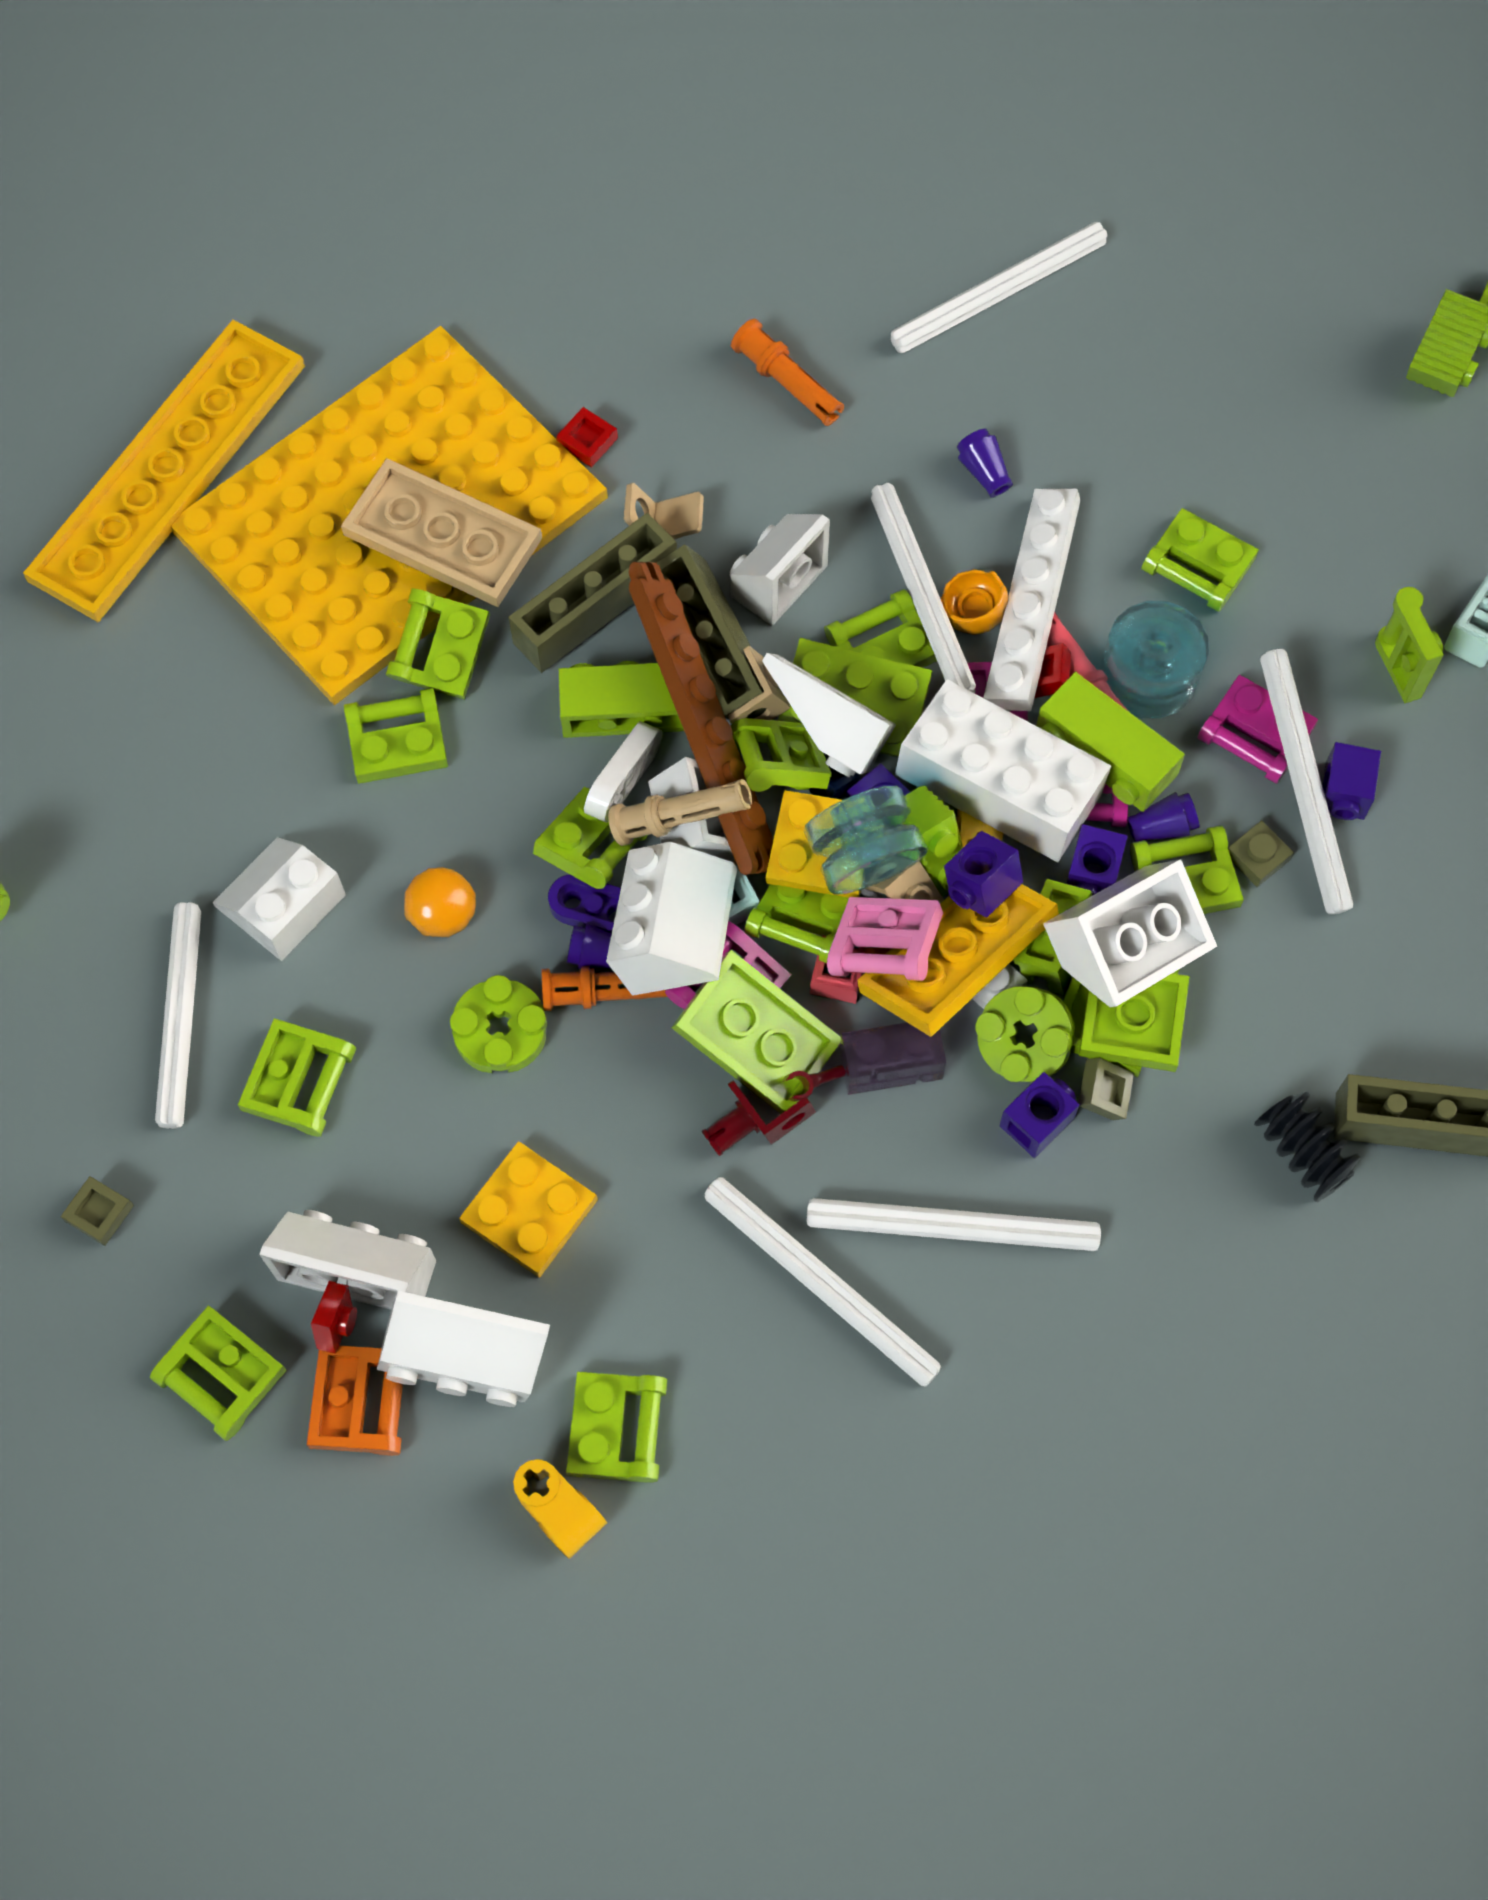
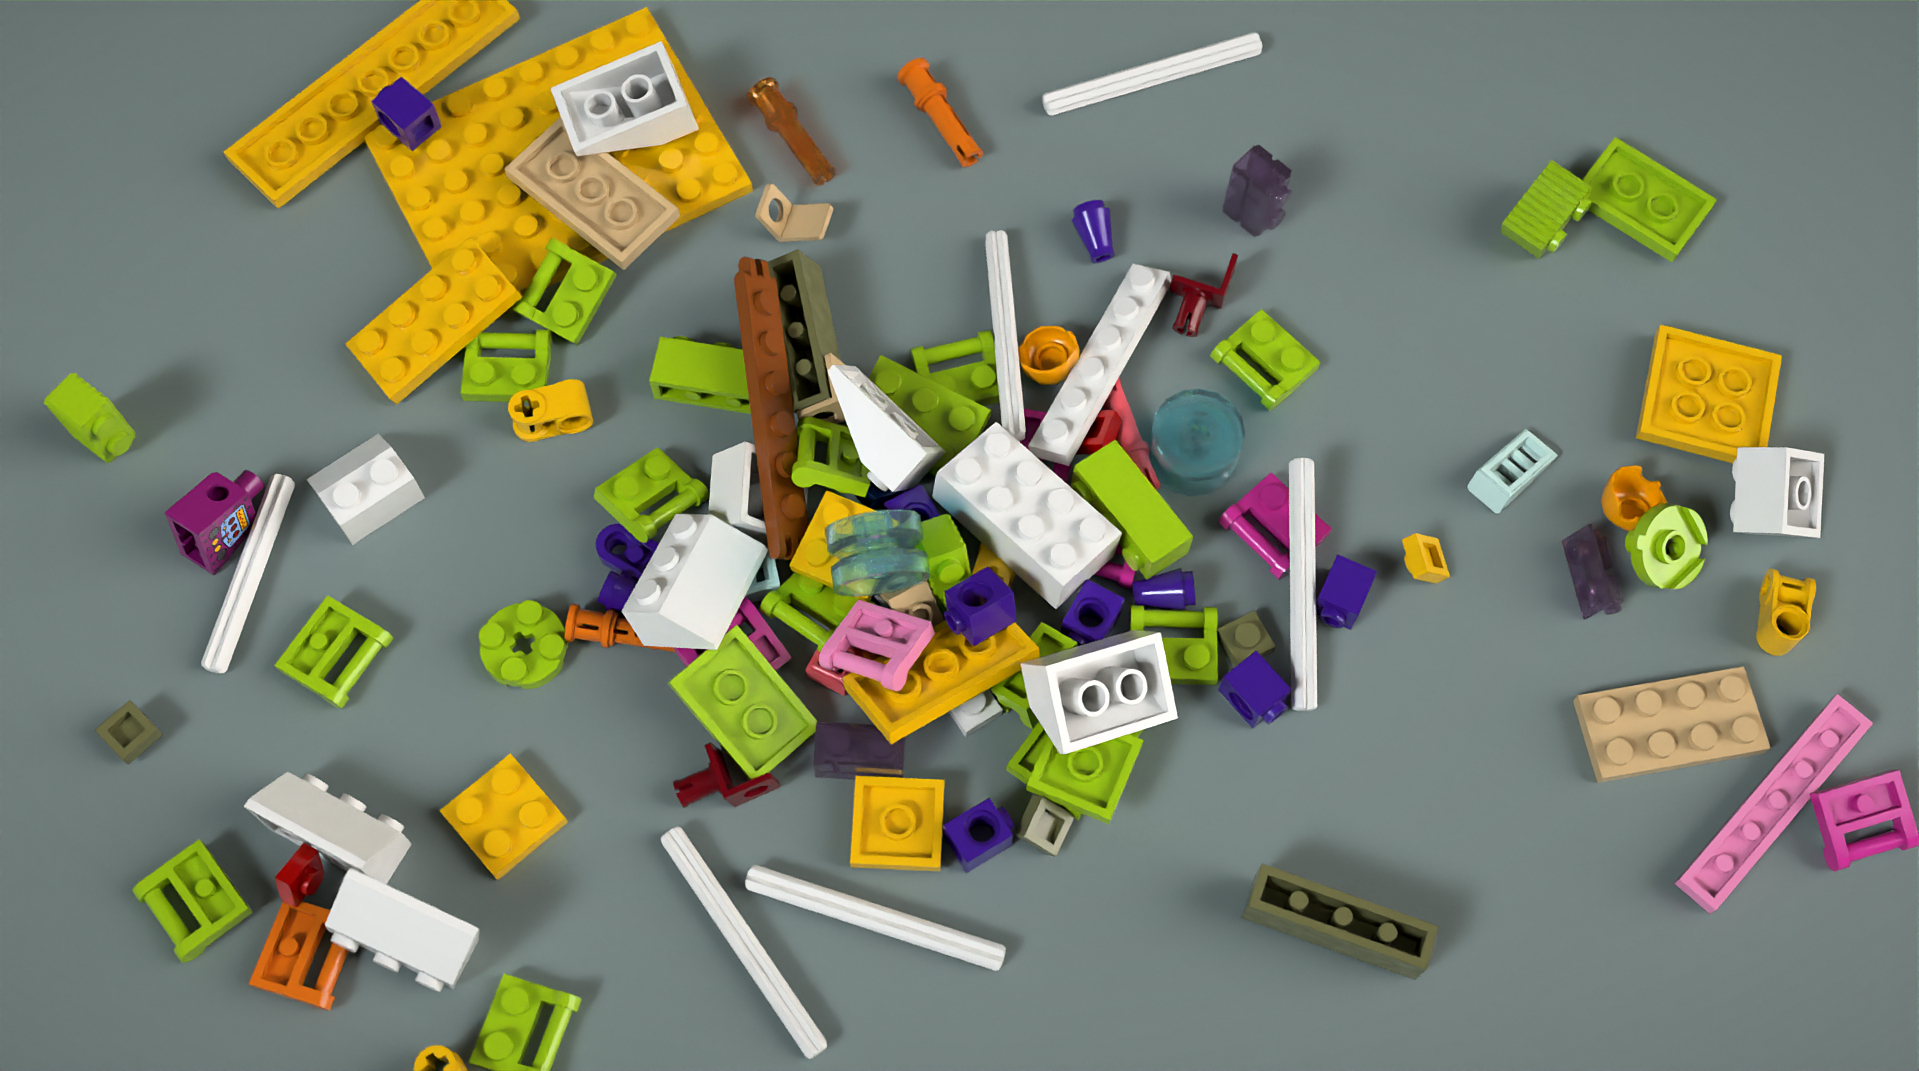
camera: 10 degrees right, 0 degrees up
(128, 964) = (214, 518): none -> magenta torso
(216, 489) = (406, 113): none -> dark purple brick
(306, 703) = (433, 320): none -> yellow plate
(439, 902) = (502, 523): light orange hair -> none
(455, 429) = (625, 104): none -> white slope
(462, 772) = (555, 410): none -> yellow piece
(586, 595) = (703, 275): olive brick -> none
(587, 436) = (747, 133): red plate -> none
(621, 413) = (782, 118): none -> clear orange pin
(623, 770) = (691, 442): white beam -> none
(660, 814) = (708, 488): tan pin -> none
(781, 565) = (885, 286): white slope -> none
(814, 1080) = (785, 758): dark red hand -> none
(951, 1122) = (897, 823): none -> yellow plate
(998, 1028) = (961, 751): lime plate -> none
(1113, 507) = (1197, 297): none -> dark red bracket
(1149, 385) = (1257, 191): none -> clear purple brick
(1286, 902) = (1255, 690): none -> dark purple brick
(1309, 1144) = (1214, 919): black piece -> none
(1409, 646) = (1429, 481): lime plate -> none
(1422, 728) = (1425, 558): none -> yellow plate

